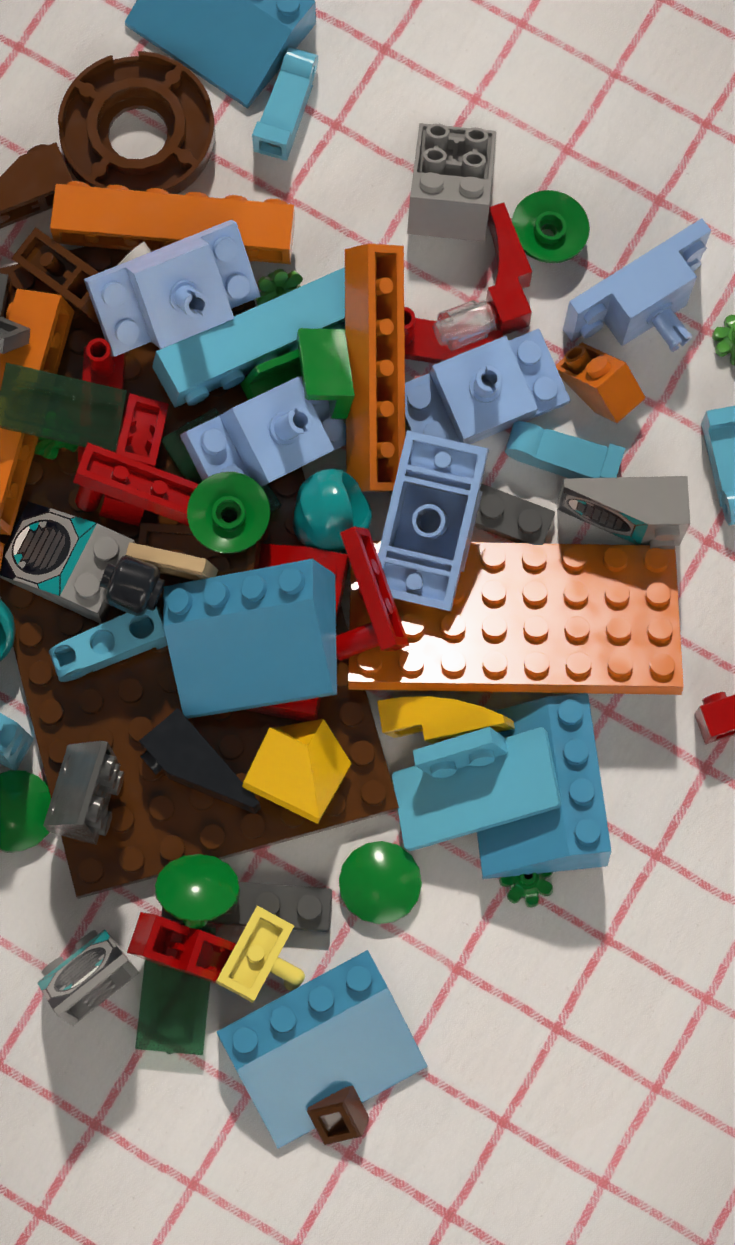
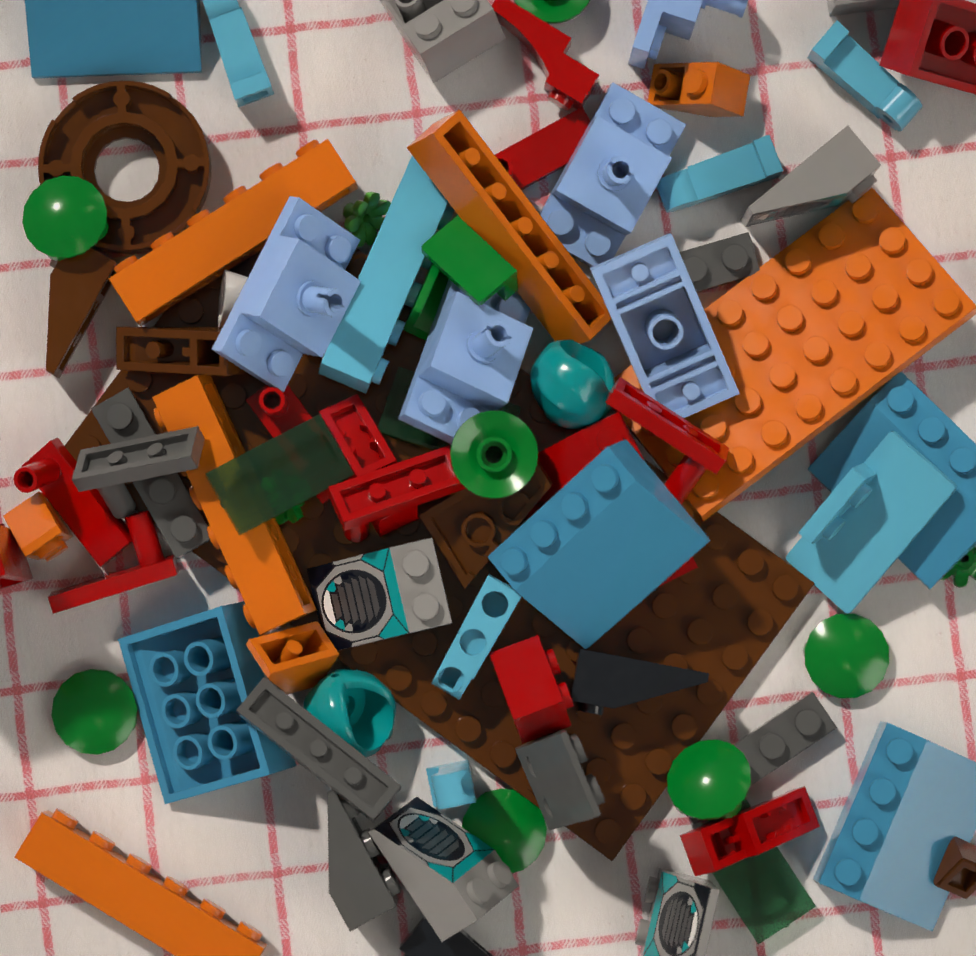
camera: 40 degrees left, 10 degrees up
(62, 124) = (65, 217): none -> green dish
(118, 707) = (531, 690): none -> red brick
(132, 585) = (466, 579): black head -> none
(173, 563) = (479, 533): tan tile -> none
(258, 955) = (802, 796): light yellow plate -> none
(299, 768) = (717, 619): yellow slope -> none
(437, 718) = (794, 485): yellow slope -> none
(464, 324) = (550, 129): clear brick -> none

